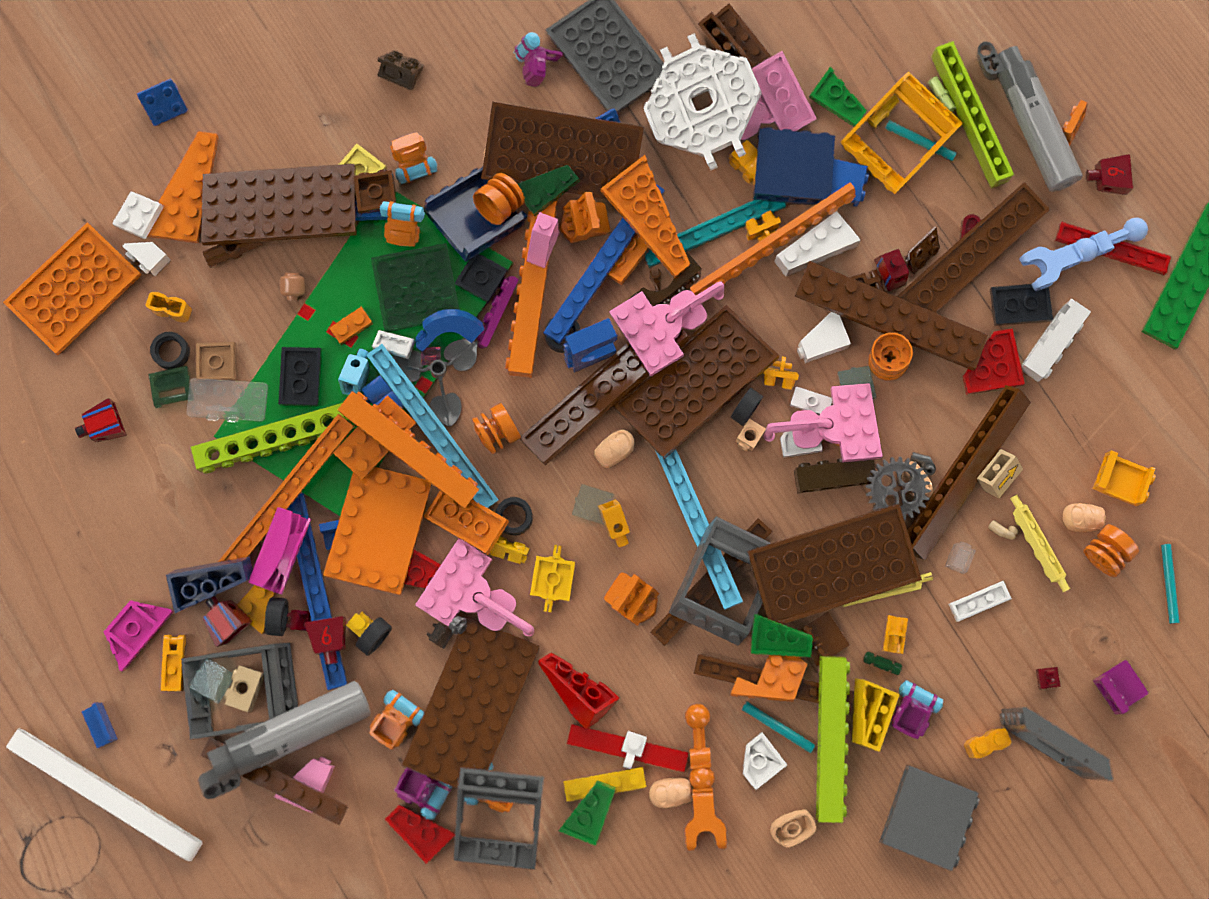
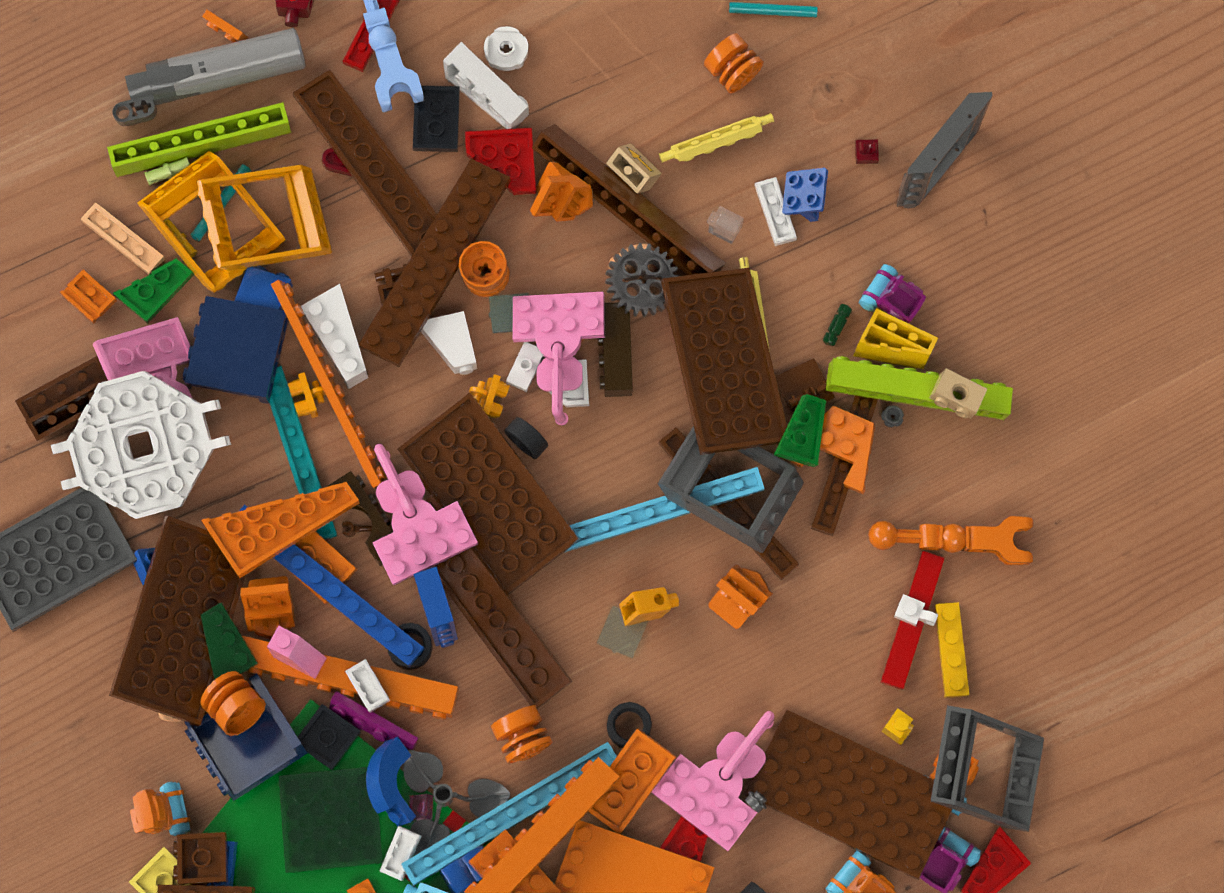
camera: 85 degrees left, 5 degrees down
(399, 69) = (35, 819): dark brown bracket -> none
(401, 223) = (247, 826): orange piece -> none
(440, 635) = (765, 825): clear smoke tile -> none
(516, 550) = (672, 725): yellow hinge -> none
(523, 301) = (367, 685): none -> white plate
(532, 741) = (898, 726): none -> yellow brick
(534, 58) = (51, 646): magenta piece -> none
(552, 578) = (708, 686): yellow plate -> none
(582, 696) = (849, 665): red wedge -> none
(590, 814) = (986, 668): green wing -> none
(614, 448) = (557, 599): light nougat piece -> none
(671, 792) = (966, 575): light nougat piece -> none
(745, 163) = (229, 404): light orange brick -> none
(754, 428) = (555, 430): light nougat brick -> none
(761, 761) = (938, 470): white plate -> none
(778, 727) = (900, 448): teal piece -> none
(793, 828) = (1015, 443): light nougat piece -> none
(805, 723) = (892, 410): none -> dark grey plate
(825, 48) = (88, 296): none -> orange plate
(830, 783) = (971, 394): none -> tan brick
(878, 68) = (122, 238): none -> light nougat plate
(892, 267) = (376, 254): dark red torso -> none
(895, 634) = (807, 306): light orange hips -> none
(923, 250) = (356, 215): reddish brown hinge -> none
(925, 205) = (304, 208): none -> light orange window
(925, 462) = (611, 248): dark grey arm -> none
(929, 817) = (1012, 296): dark grey panel -> none
(966, 414) = (561, 194): none -> orange piece
(984, 745) = (932, 220): light orange brick -> none
(999, 624) = (805, 193): none -> bracket
(1009, 533) = (702, 169): tan arm -> none
(1083, 517) = (691, 87): light nougat piece -> none
(1100, 346) = (506, 61): none -> white plate
(1120, 687) = (883, 77): magenta bracket -> none
(1124, 479) = (652, 39): light orange panel -> none

